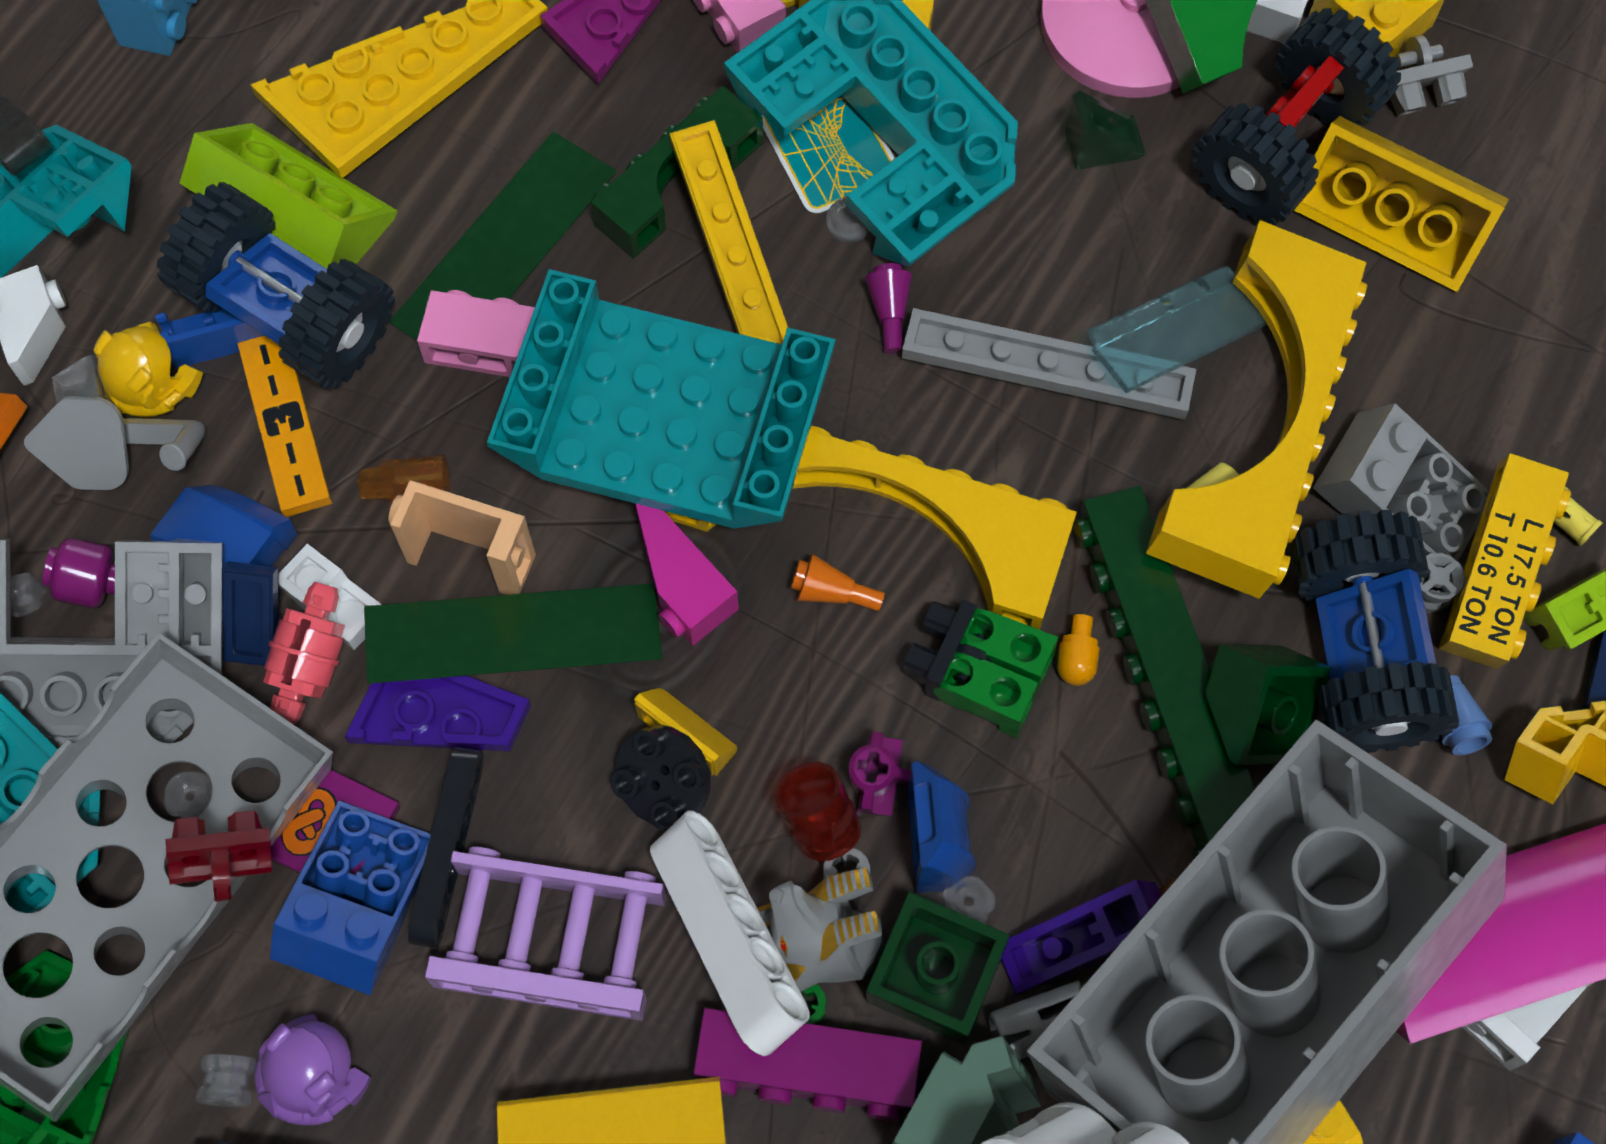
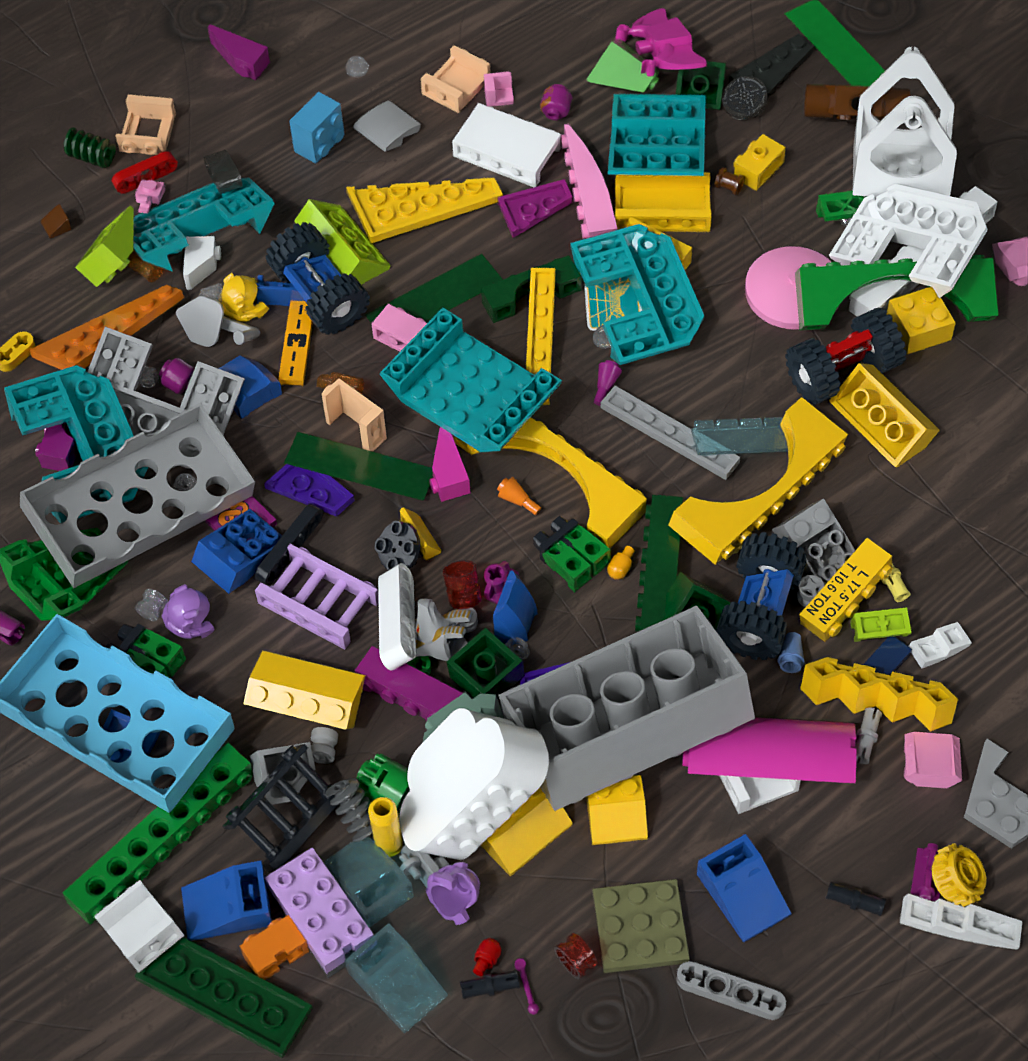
camera: 25 degrees right, 10 degrees down
(190, 849) = (179, 497): dark red hips -> none
(249, 611) = (244, 416): dark blue tile -> none
(304, 652) = (262, 440): coral piece -> none
(312, 567) = (282, 421): white slope -> none
(1101, 133) = (749, 336): clear green slope -> none
(1444, 76) = (931, 357): light grey hips -> none

